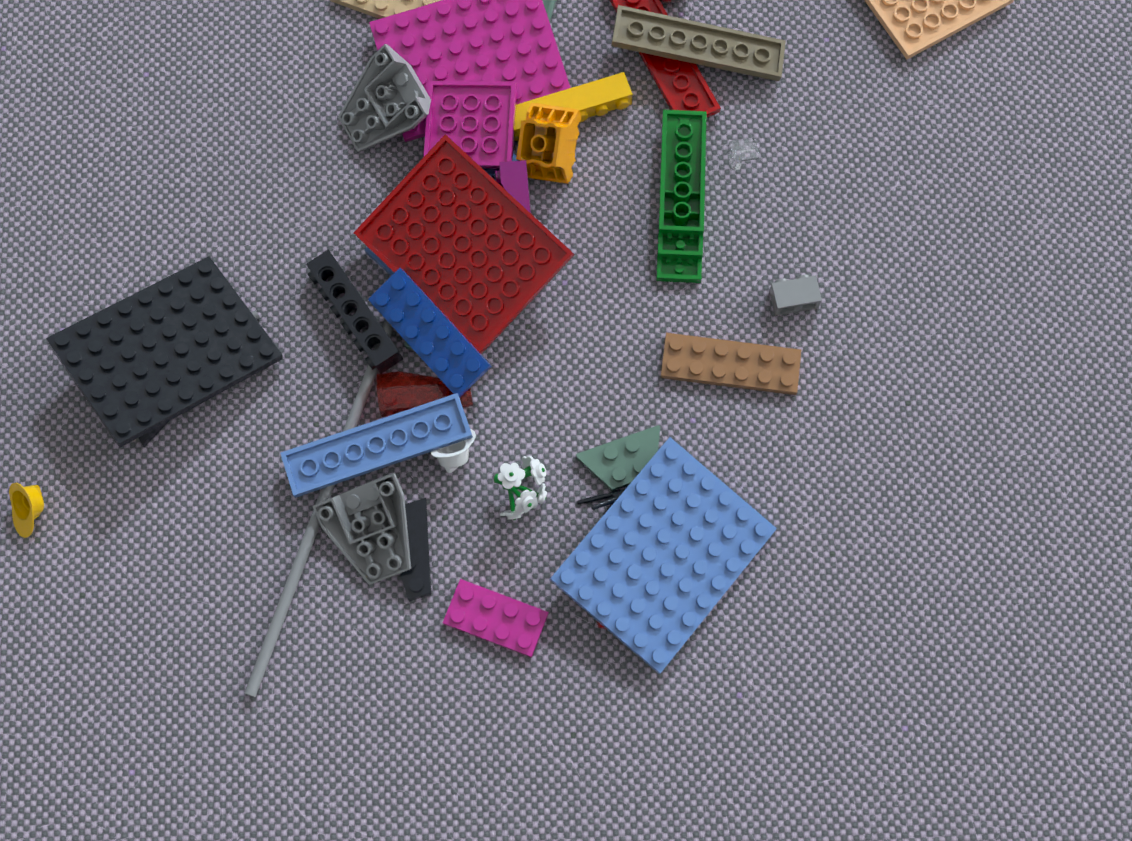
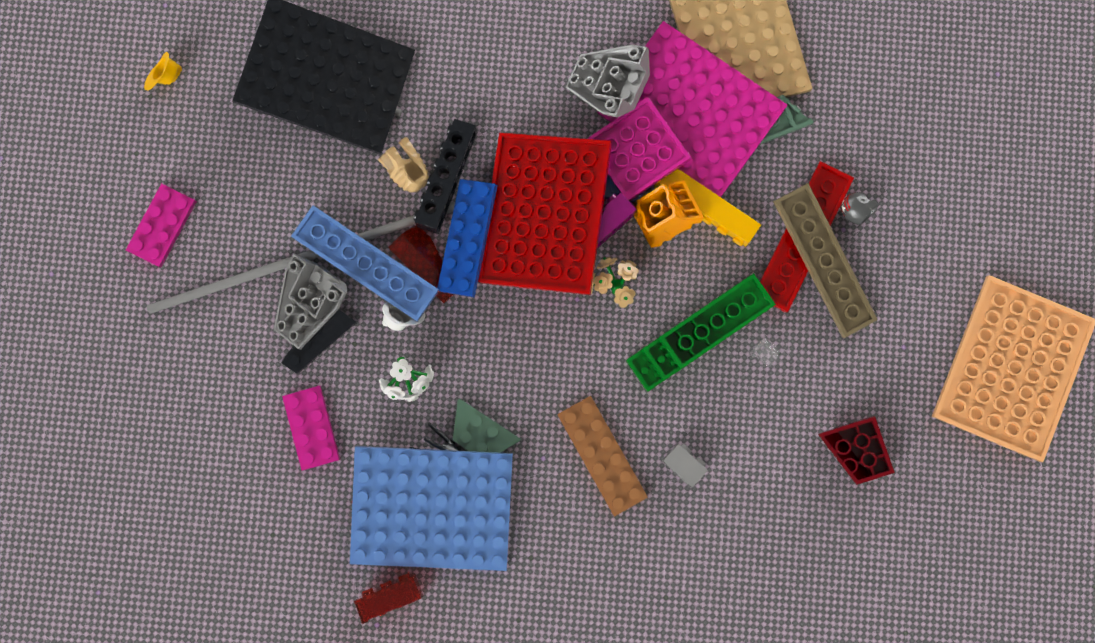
camera: 55 degrees right, 10 degrees up
(175, 622) = (161, 225): none -> dark pink plate
(323, 343) = (408, 173): none -> tan hair
(573, 236) = (607, 281): none -> tan plant
(721, 657) = (388, 597): none -> clear red wedge
(893, 133) = (859, 449): none -> dark red wedge

